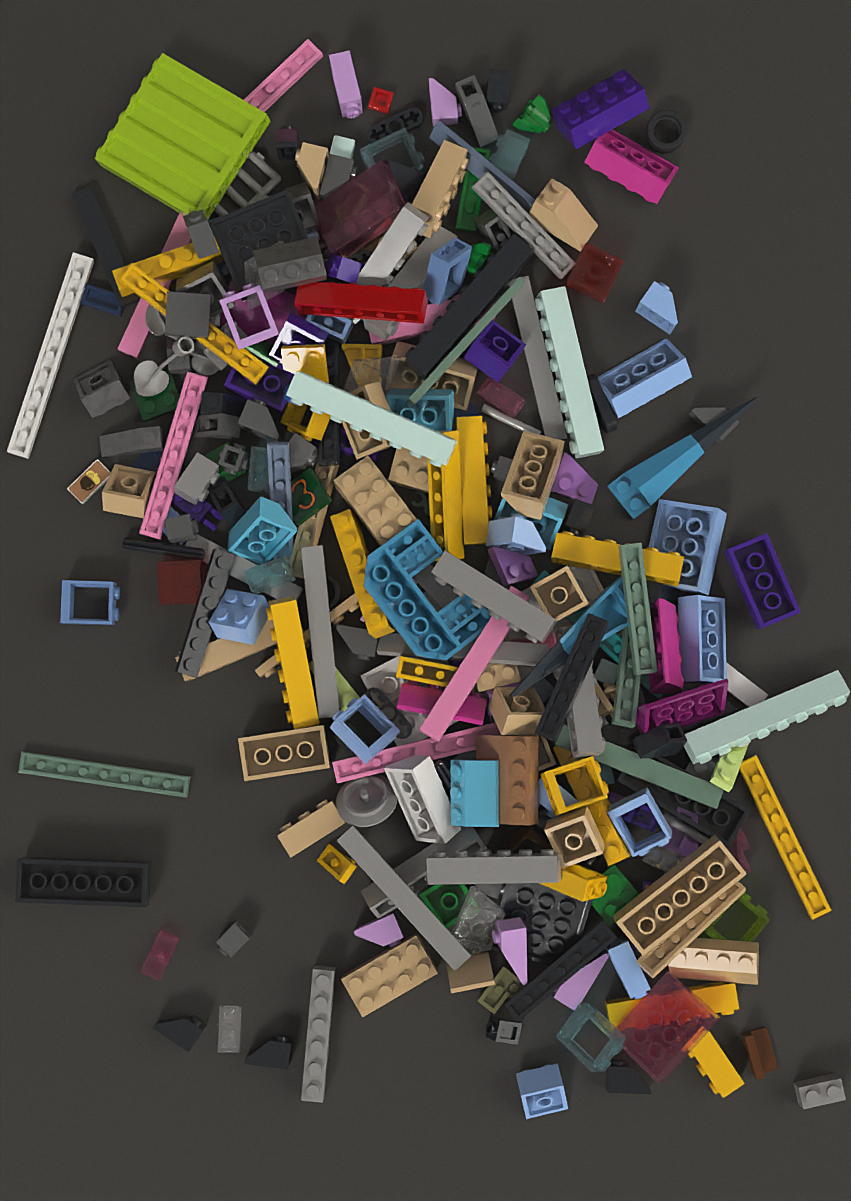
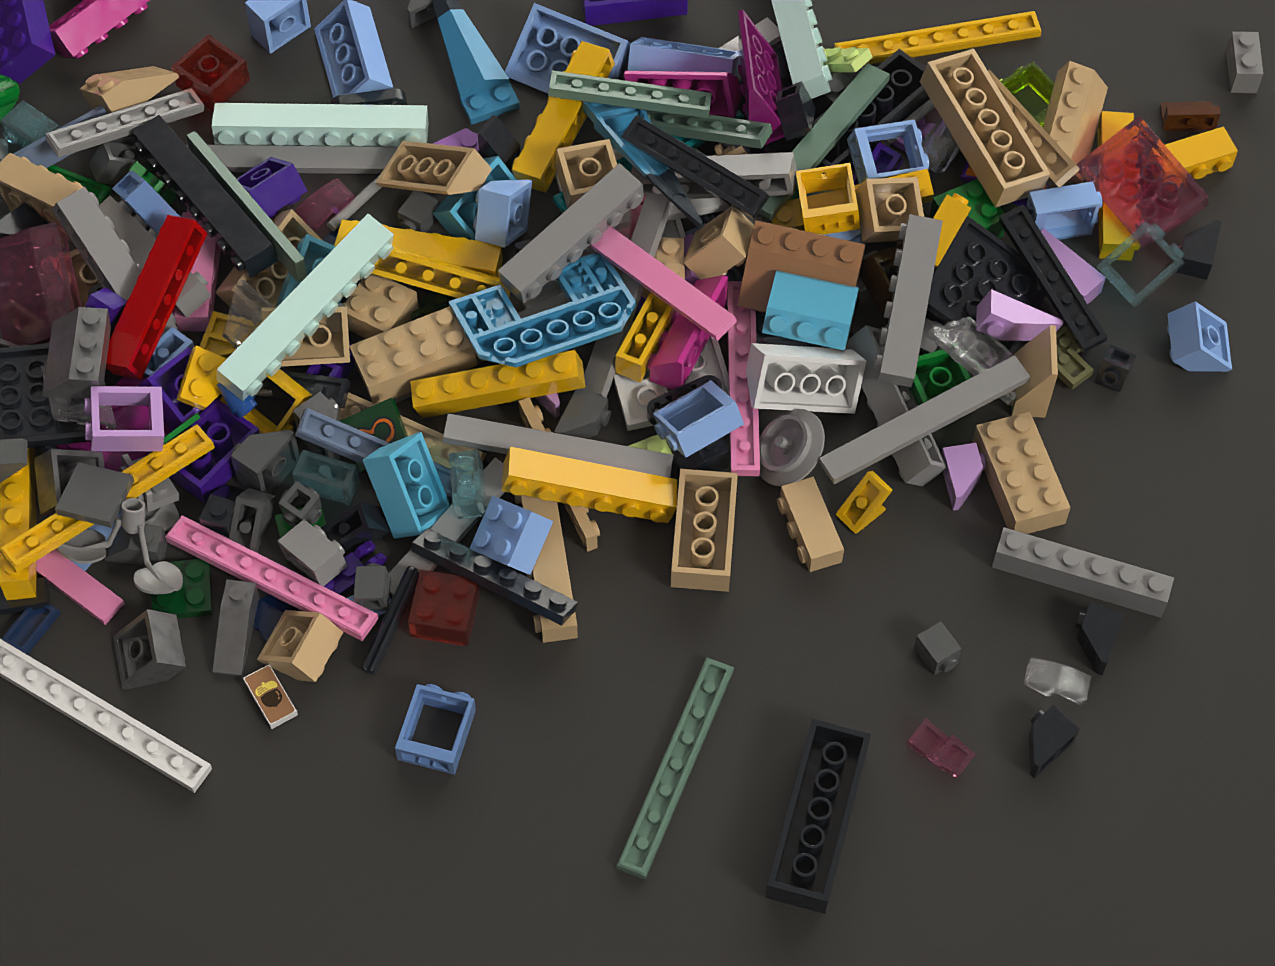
camera: 80 degrees left, 25 degrees down
(512, 566) = (532, 227): medium lavender wing -> none

